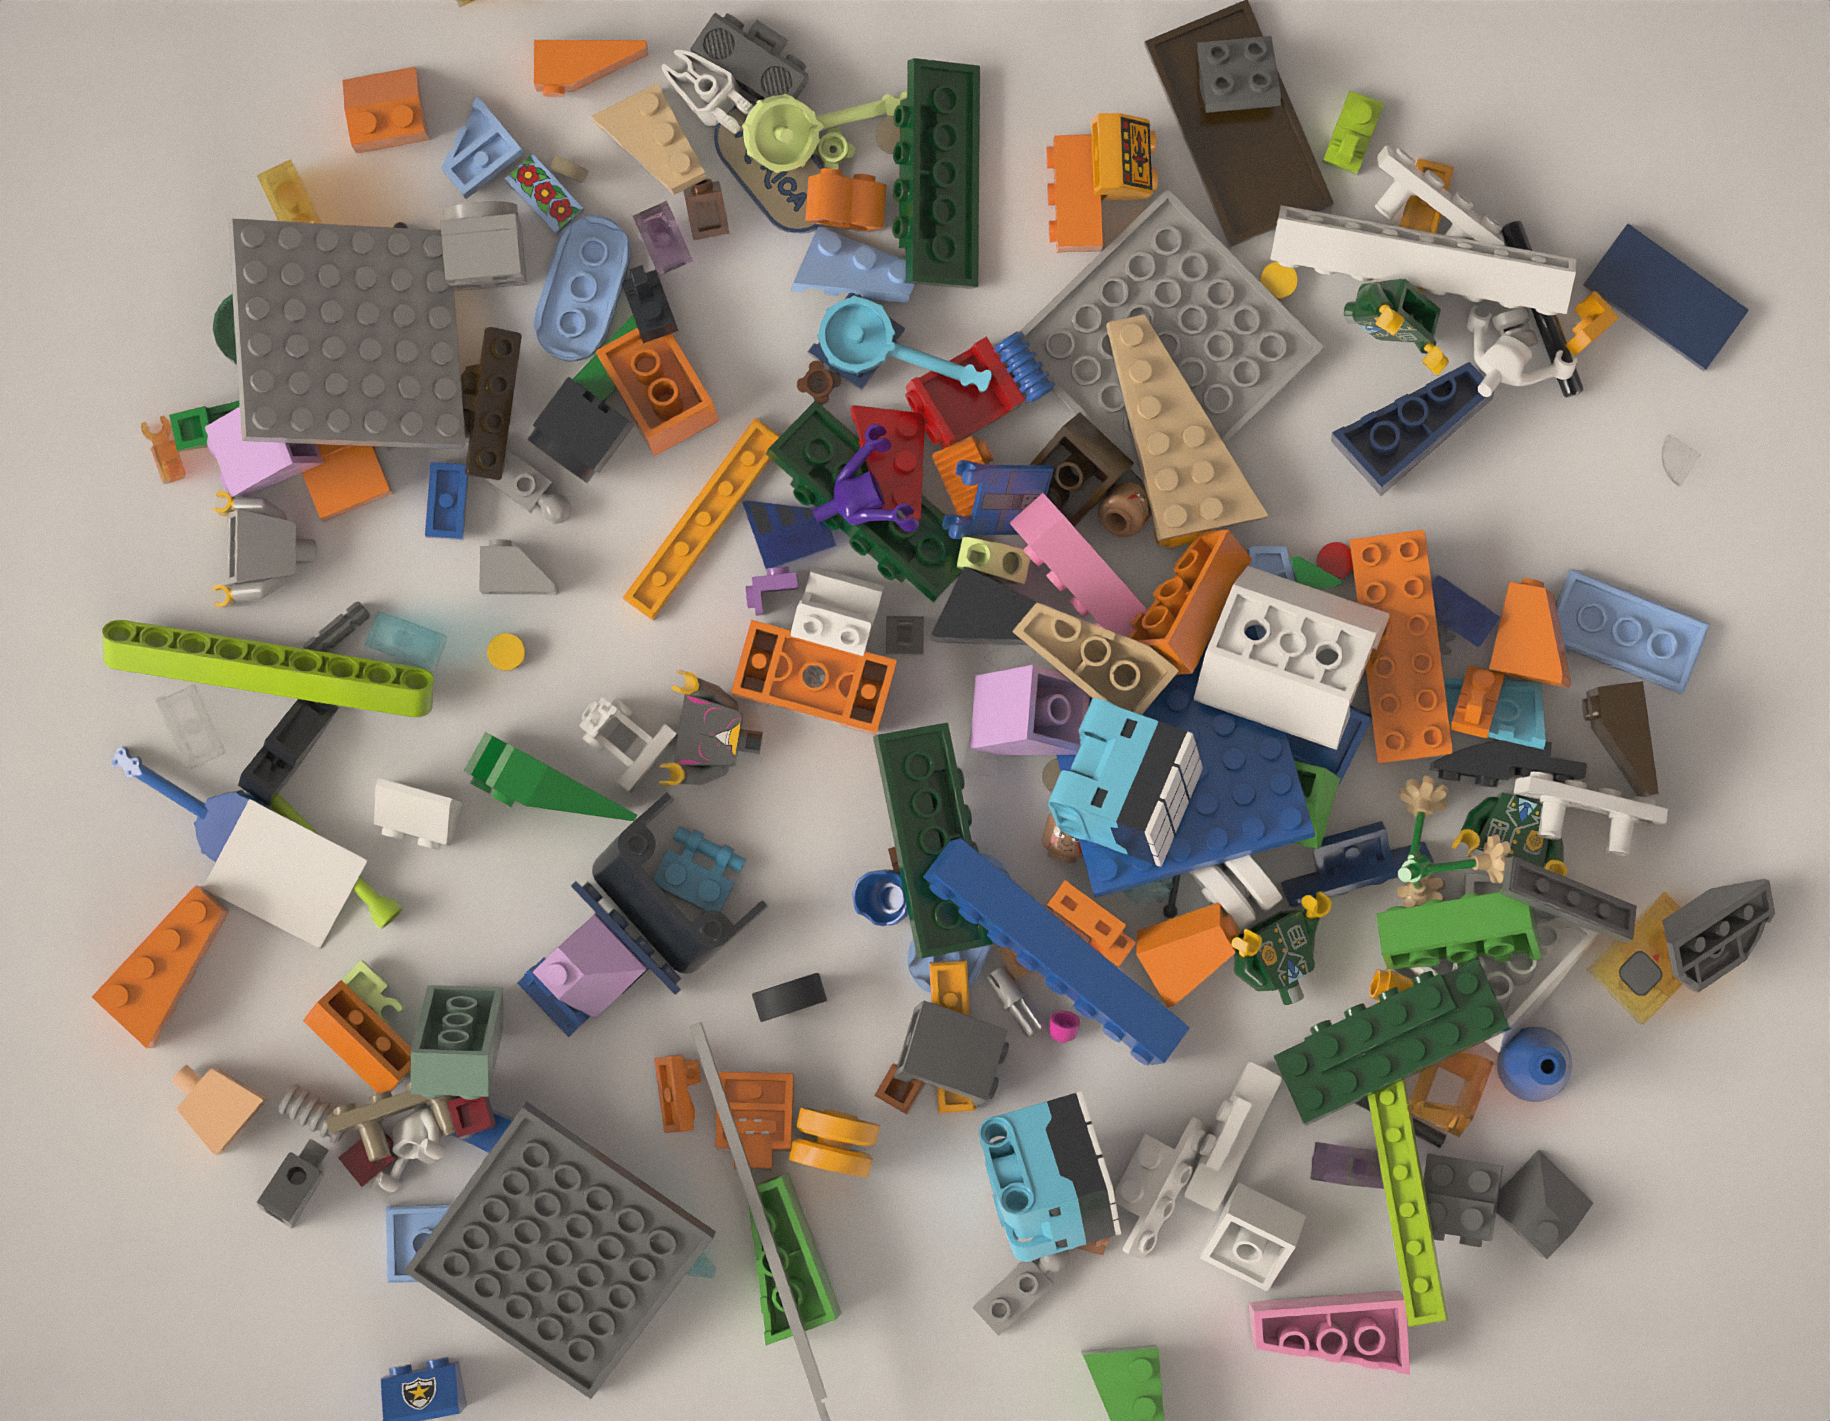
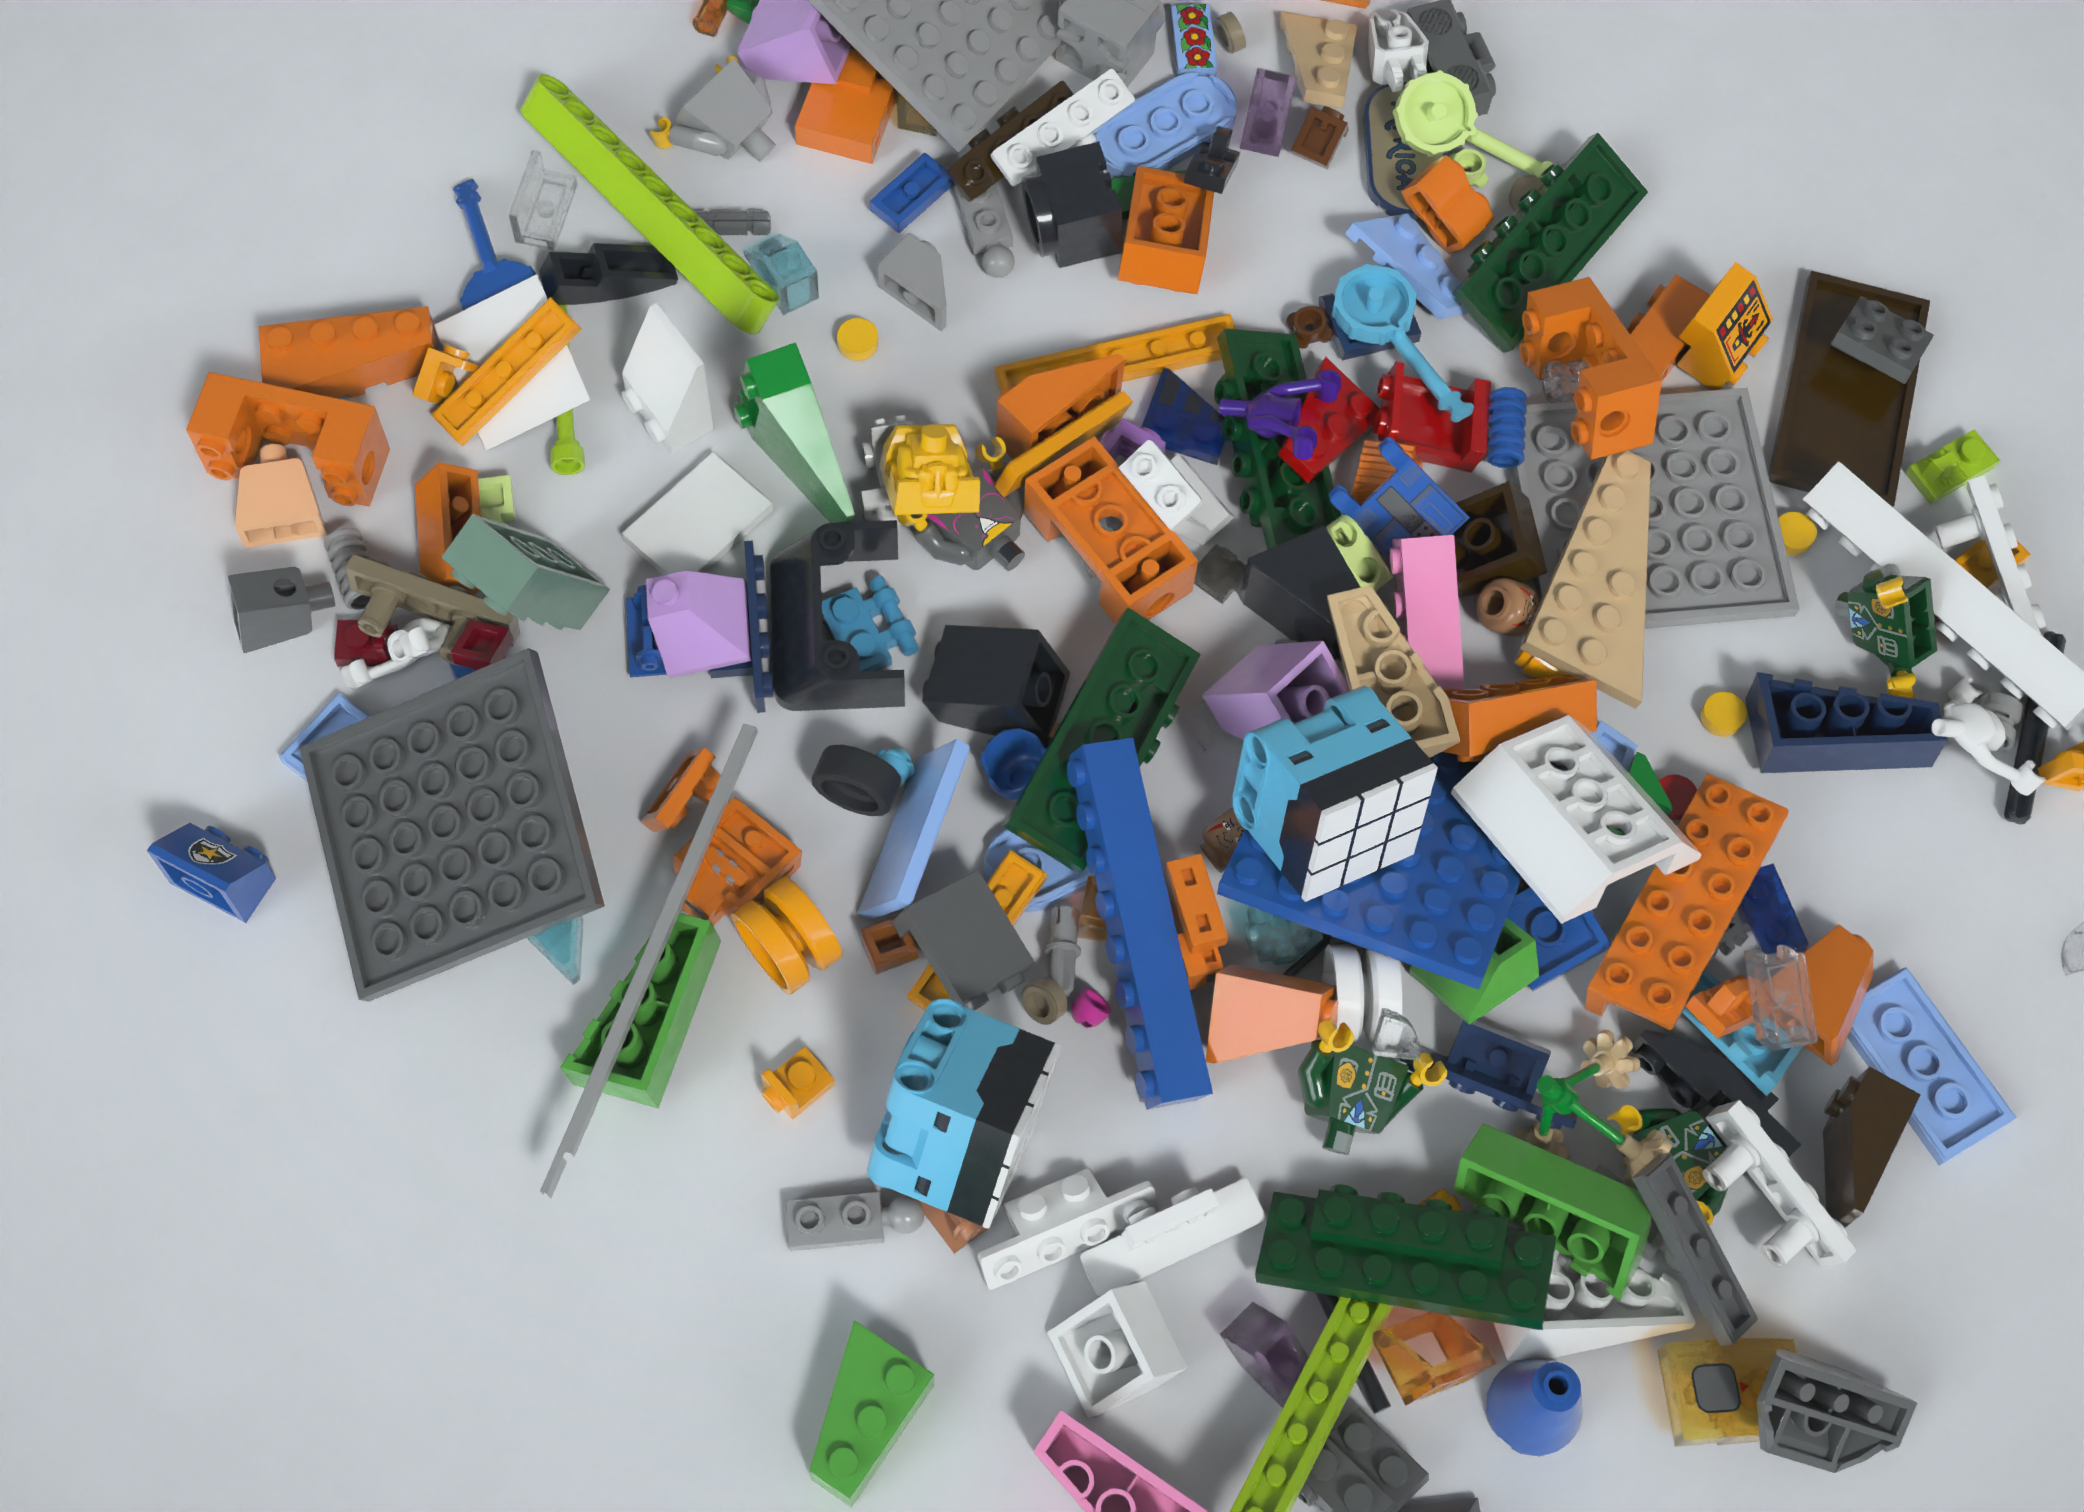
camera: 40 degrees right, 20 degrees down
(138, 1078) = (343, 434): none -> orange plate
(243, 921) = (436, 374): none -> light orange bracket
(290, 885) = (506, 372): none -> light orange tile
(515, 885) = (698, 519): none -> white tile
(521, 368) = (1064, 127): none -> white bracket
(659, 740) = (928, 471): none -> yellow brick
(696, 614) = (1053, 400): none -> orange slope
(726, 631) = (1074, 434): none -> light orange tile
(800, 960) = (900, 761): none -> medium azure plate
(822, 848) = (996, 680): none -> black slope
(856, 1001) = (914, 830): none -> light blue tile
(915, 1227) = (796, 1083): none -> light orange bracket
(1012, 249) = (1618, 390): none -> orange plate
(1031, 1046) = (1044, 1000): none -> dark tan tile
(1037, 288) = (1561, 380): none -> clear wheel
(1282, 904) = (1395, 1037): none -> clear tile
(1325, 468) = (1723, 714): none -> yellow tile
(1508, 677) = (1780, 998): none -> clear hinge

